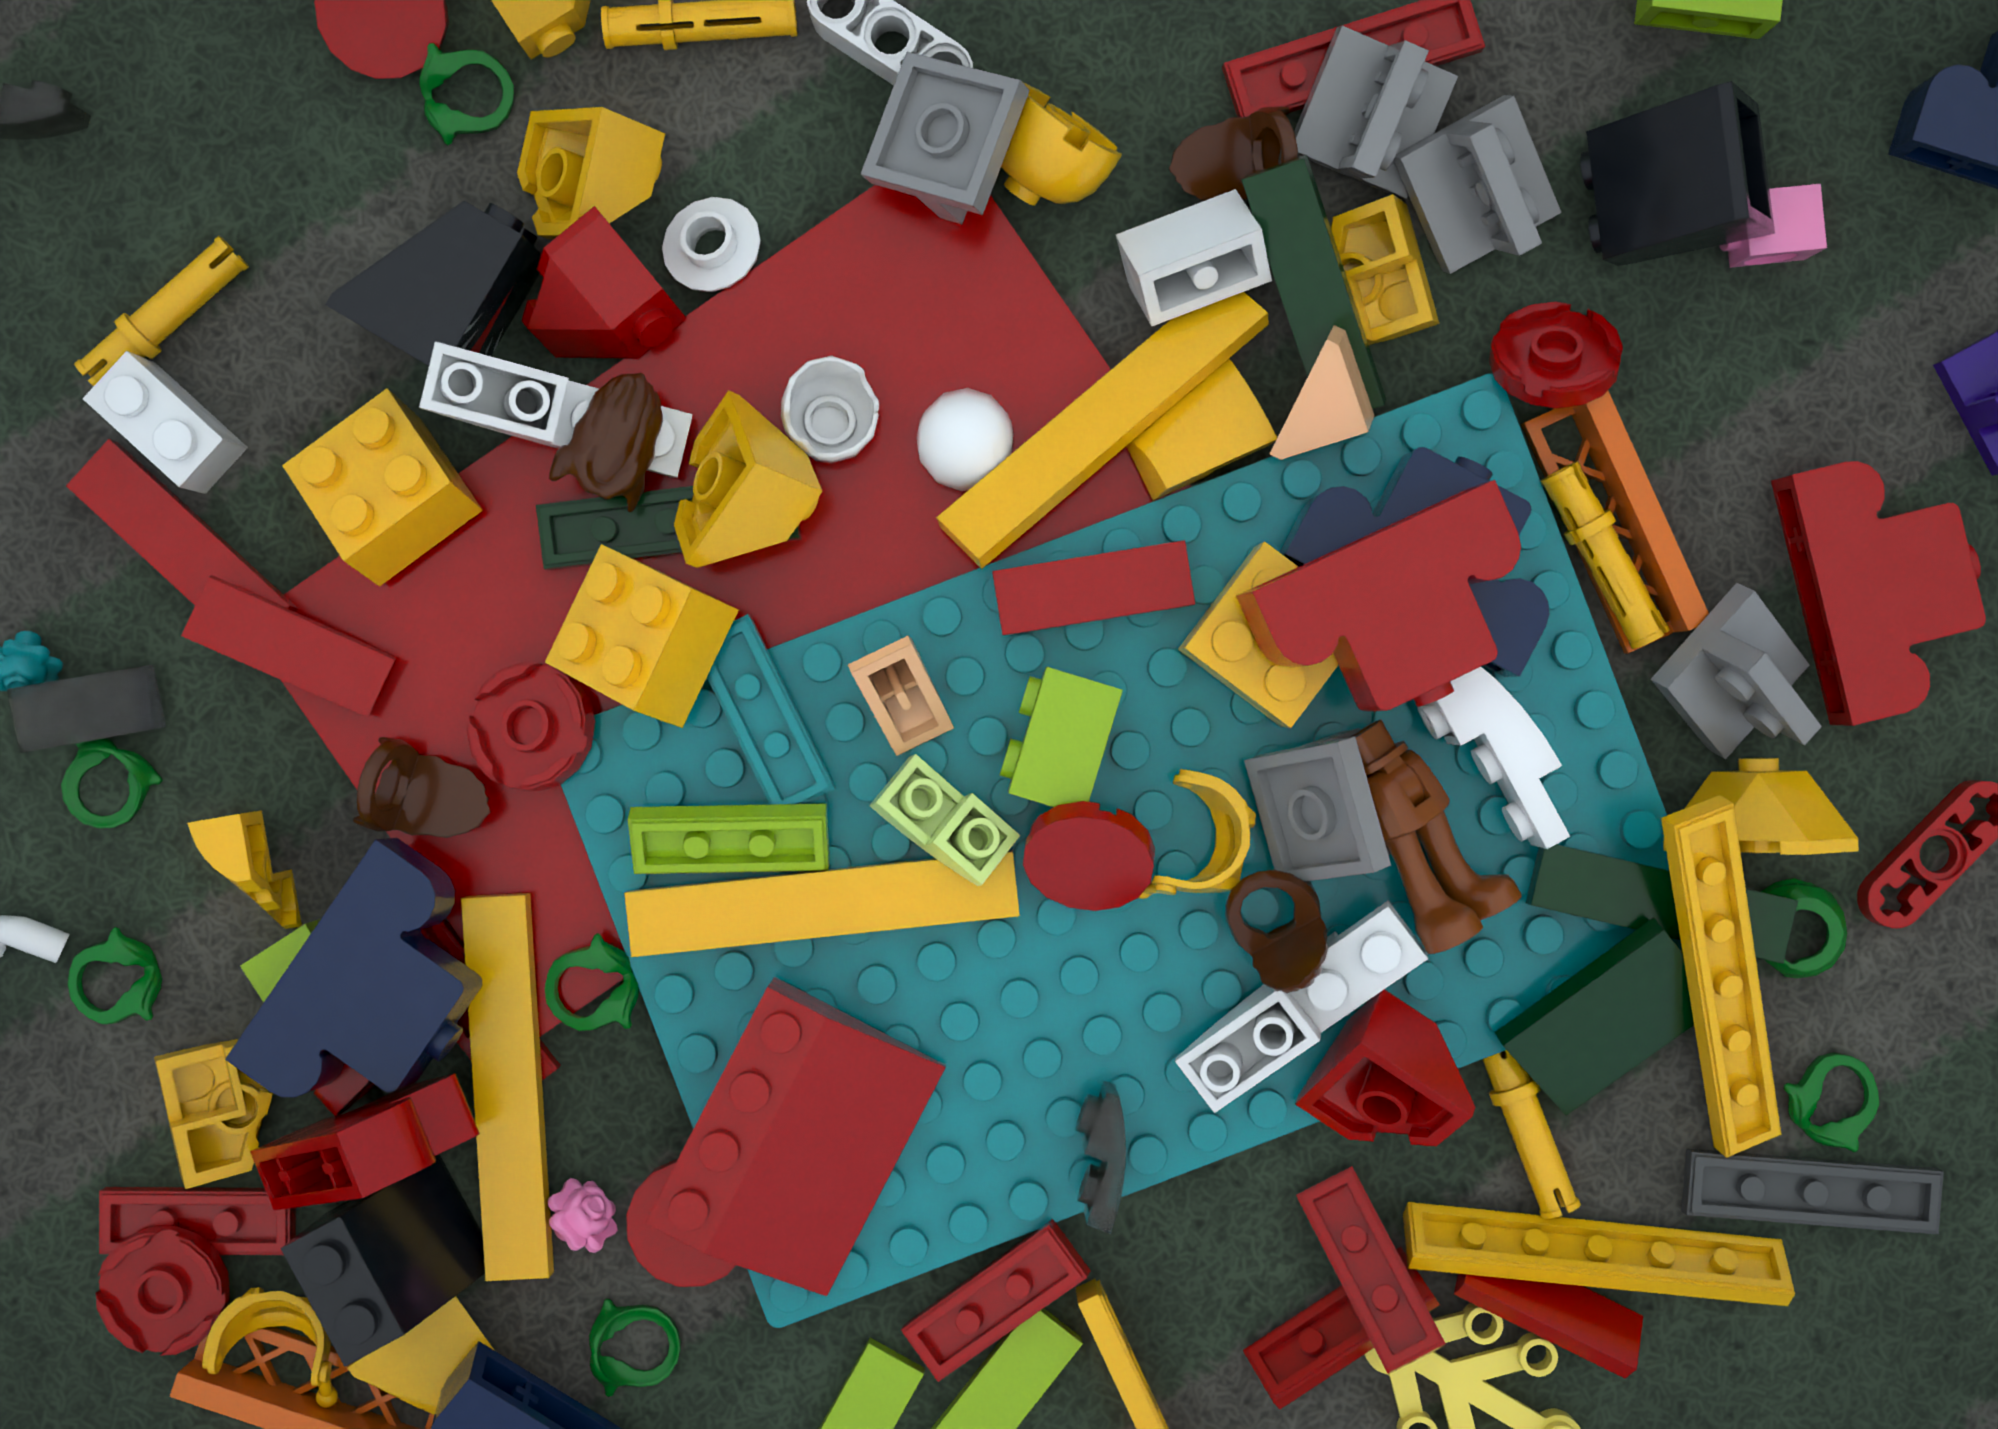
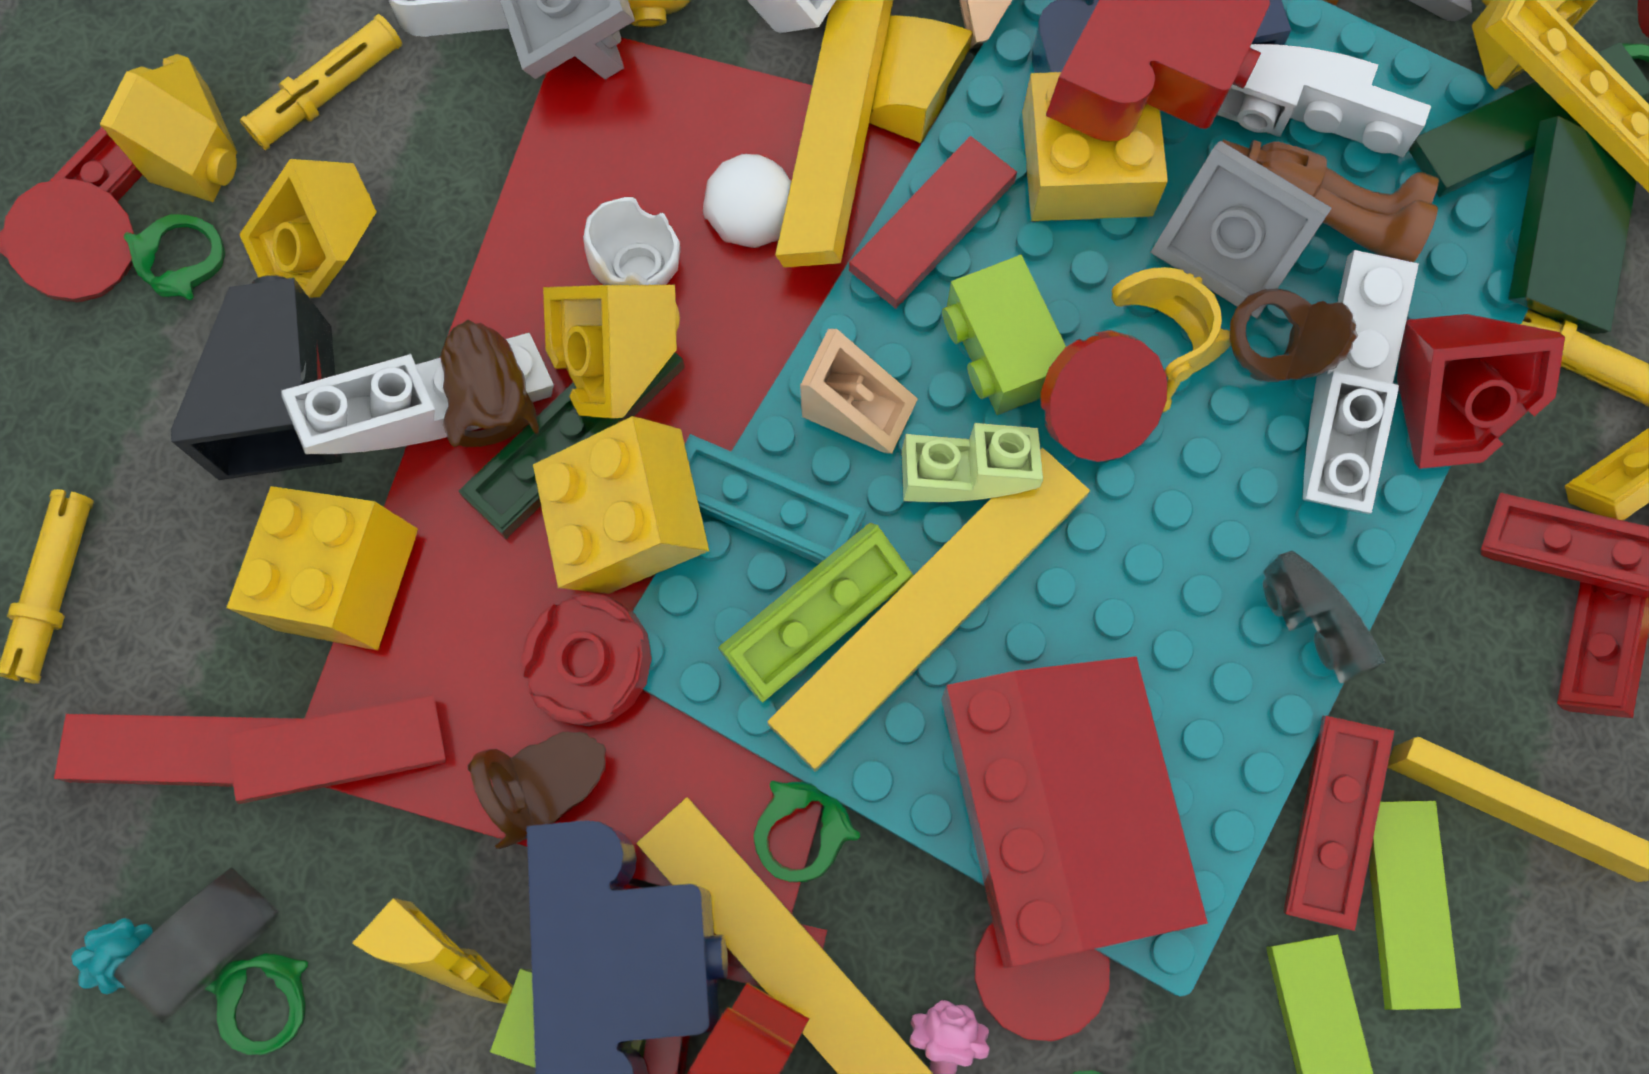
camera: 40 degrees left, 15 degrees down
(165, 423) = (104, 659): white brick -> none
(597, 296) = (389, 296): red slope -> none
(726, 264) = (458, 235): white piece -> none

